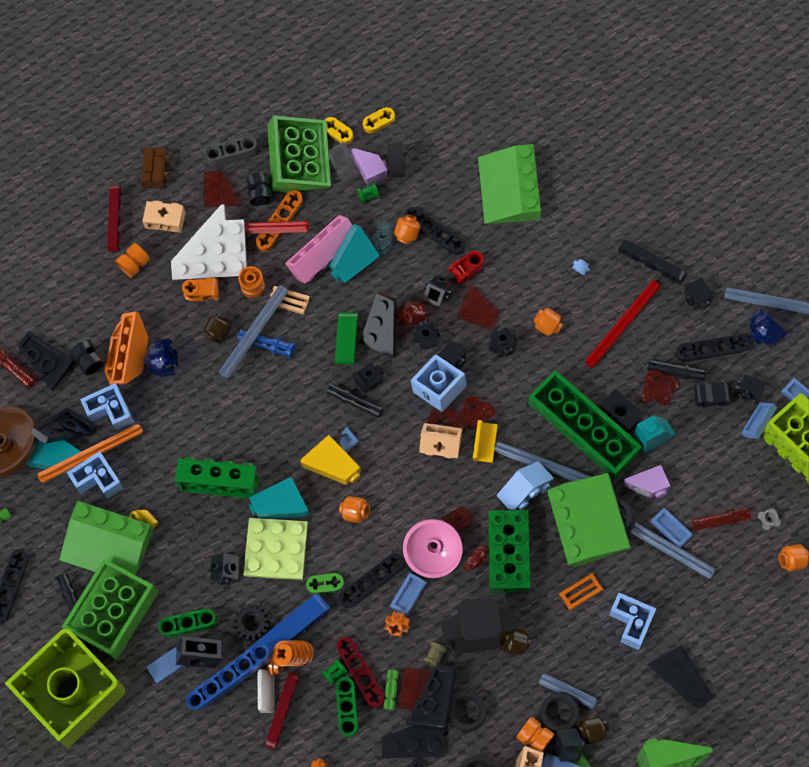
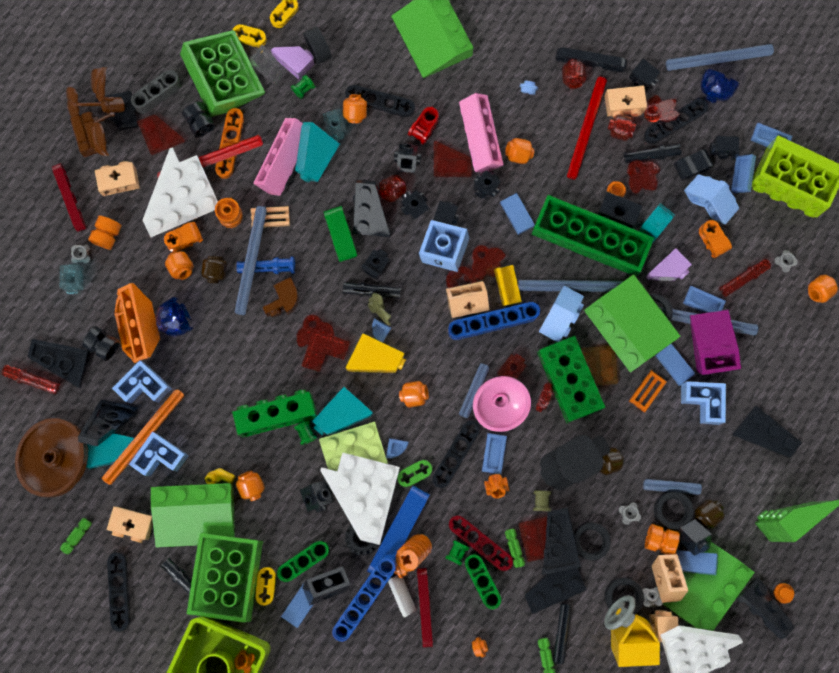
camera: 30 degrees left, 10 degrees up
(40, 519) = (120, 518): none -> light nougat brick
(85, 284) = (68, 272): none -> clear light blue brick
(92, 692) = (240, 661): none -> orange plate
(103, 267) = (76, 249): none -> light grey plate
(139, 631) = (261, 584): none -> yellow beam
(167, 536) = (250, 485): none -> orange head
(184, 147) = (108, 104): none -> reddish brown plant
(187, 313) = (179, 265): none -> orange head
(192, 156) = (127, 118): none -> black wing
(238, 507) = (305, 432): none -> green bush
(269, 581) = (364, 493): none -> white wing
(272, 381) = (288, 299): none -> reddish brown brick
(285, 423) = (305, 332): none -> clear red plate
(287, 432) = (320, 345): none -> clear red plate
(317, 554) = (396, 448): none -> medium blue tile
(353, 416) = (376, 305): none -> olive plate
(427, 514) = (477, 382): none -> sand blue axle
(467, 466) = (501, 315): none -> blue beam
(515, 695) = (635, 516): none -> light grey plate
(517, 292) = (481, 133): none -> bright pink brick
(522, 379) = (517, 214): none -> medium blue tile
(545, 549) = (601, 364): none -> clear orange wing
(618, 576) = (675, 364): none -> medium blue tile
(628, 390) = (617, 188): none -> orange plate
(629, 269) = (574, 74): none -> clear red head
(656, 334) = (621, 127): none -> clear red head
(663, 567) = (714, 342): none -> magenta slope
(679, 308) = (632, 95): none -> light nougat brick
(701, 332) = (660, 110): none -> clear red plate
(706, 473) = (715, 239): none -> orange piece
(718, 431) = (713, 196): none -> light blue brick

